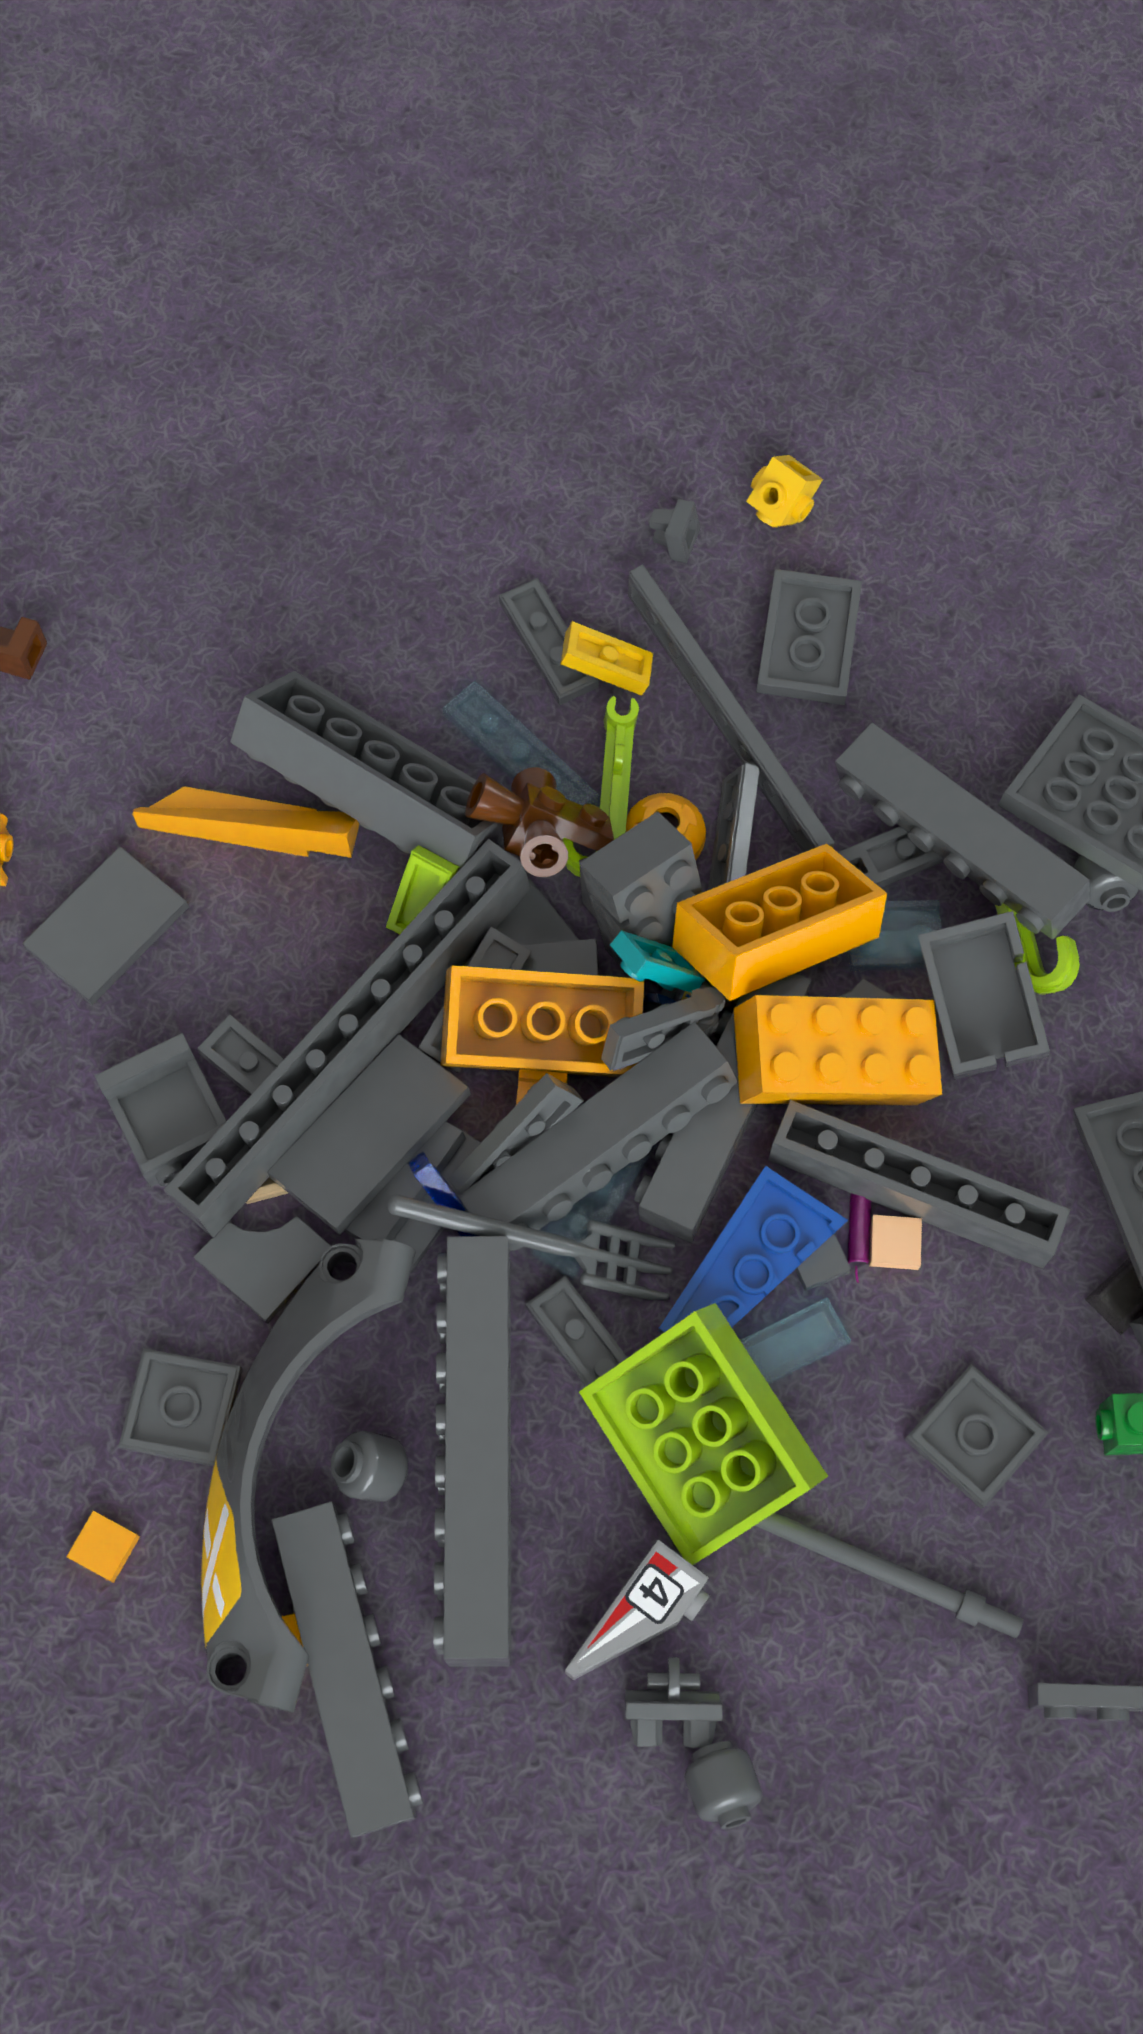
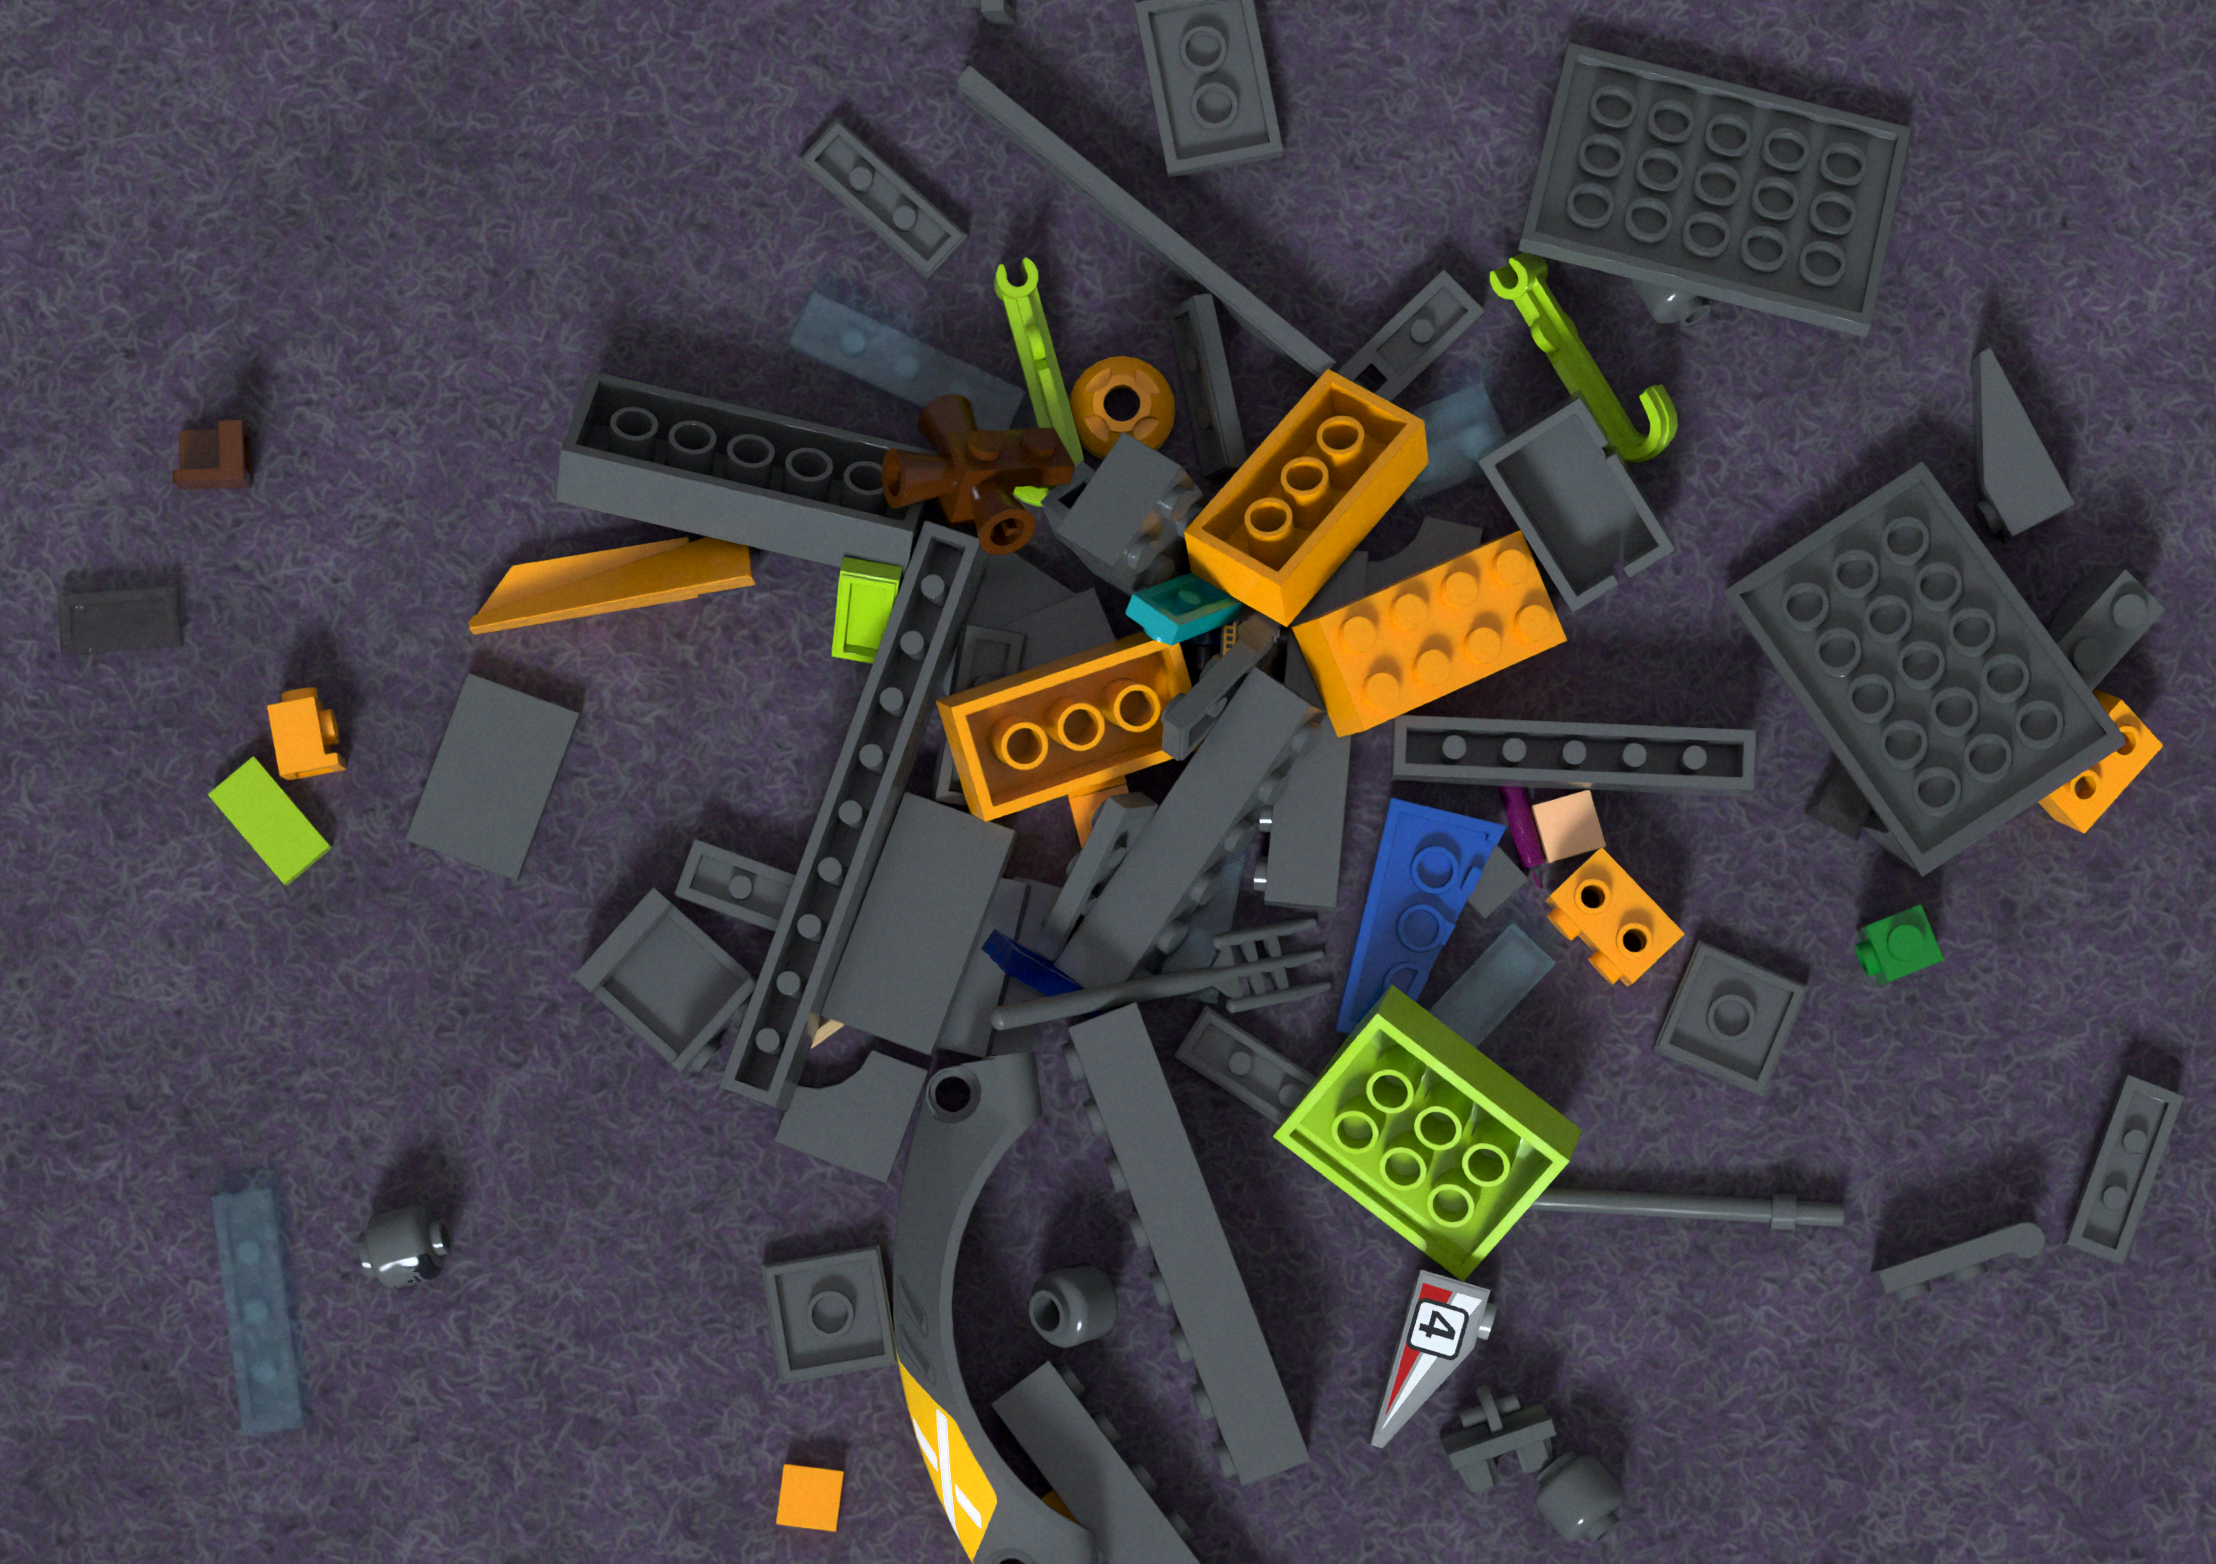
camera: 20 degrees left, 15 degrees up
(606, 658) = (969, 207): yellow plate -> none
(912, 1317) = (1620, 911): none -> light orange brick
(963, 832) = (1484, 298): dark grey brick -> none

